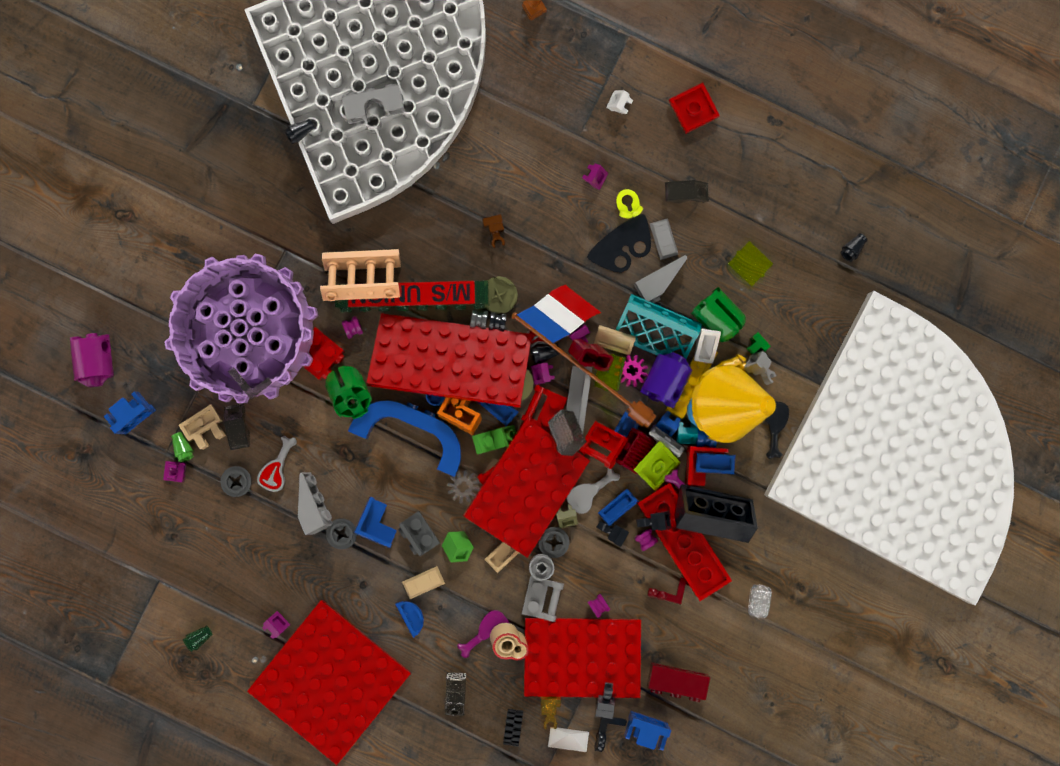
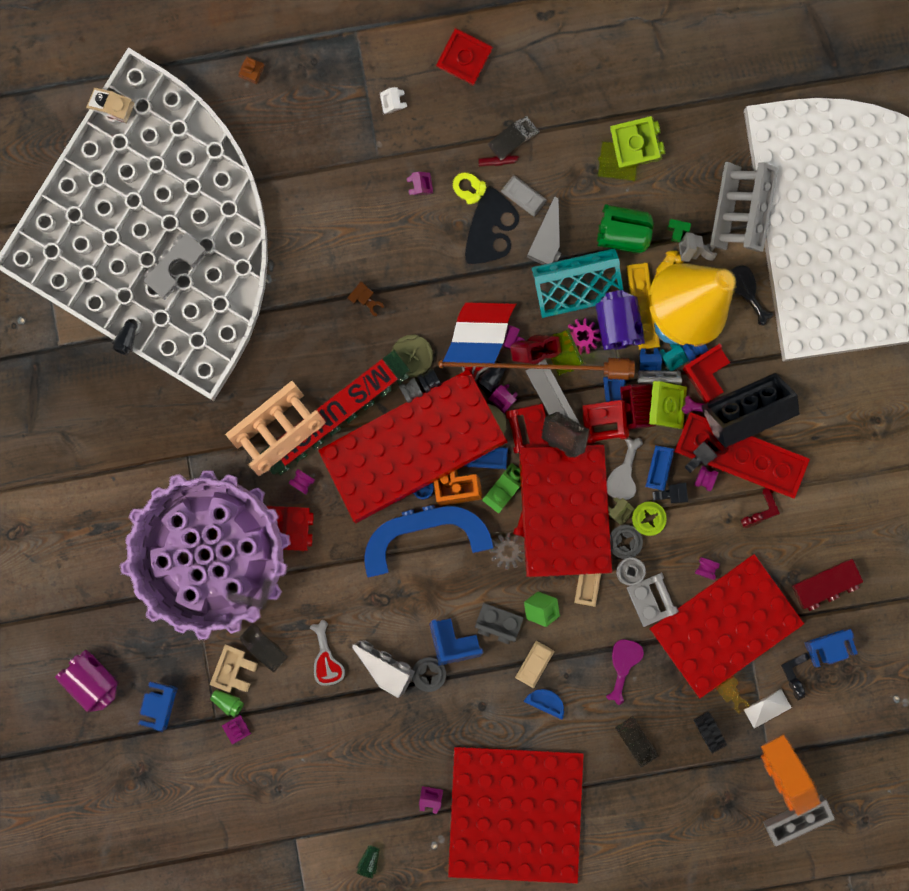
camera: 30 degrees left, 0 degrees up
(227, 482) = (291, 704): dark grey gear -> none
(342, 396) = (340, 550): green cylinder -> none
(508, 642) = (650, 660): tan piece -> none
(589, 545) = (659, 521): none -> lime gear
(605, 703) = (777, 650): black piece -> none
(614, 340) = (546, 320): tan tile -> none
(662, 200) = (490, 161): none -> dark red piece
(706, 345) = (633, 265): white slope -> none
(715, 463) = (718, 364): blue tile -> none
(759, 601) = (847, 459): clear gear -> none
(774, 259) = (637, 142): none -> lime plate
(829, 372) = (760, 207): none -> light grey fence
(853, 248) = (701, 80): black cone -> none

